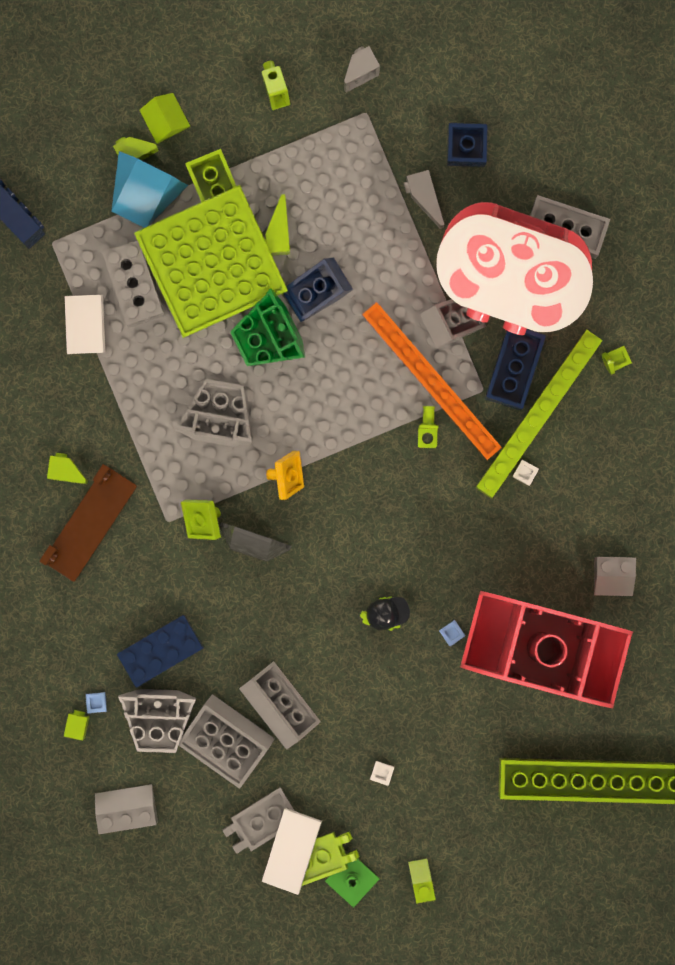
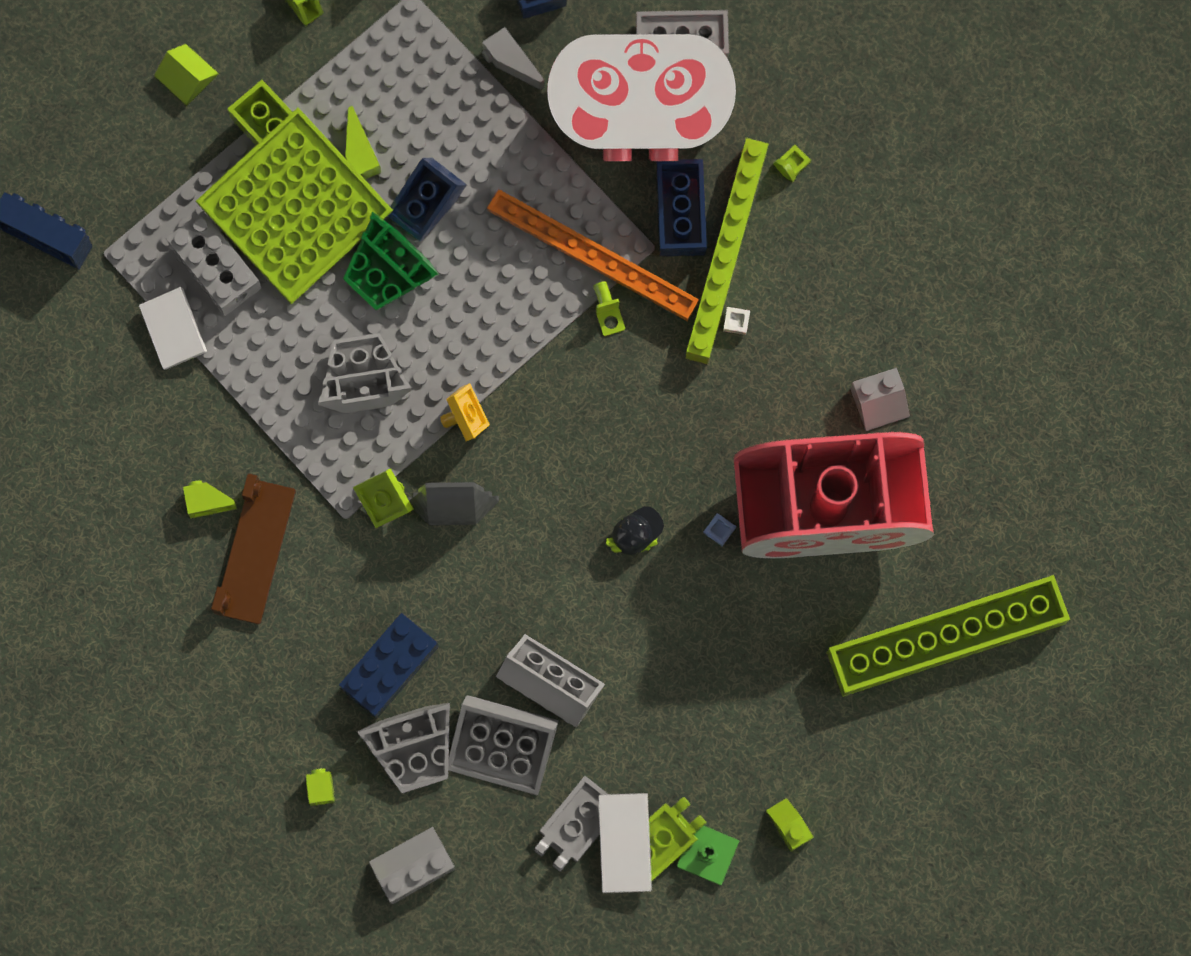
camera: 20 degrees left, 10 degrees down
(96, 702) = (333, 754): light blue tile -> none
(135, 147) = (163, 119): lime slope -> none
(142, 190) = (188, 156): dark azure wedge -> none
(382, 773) = (697, 716): white plate -> none
(449, 322) = (590, 180): light grey slope -> none

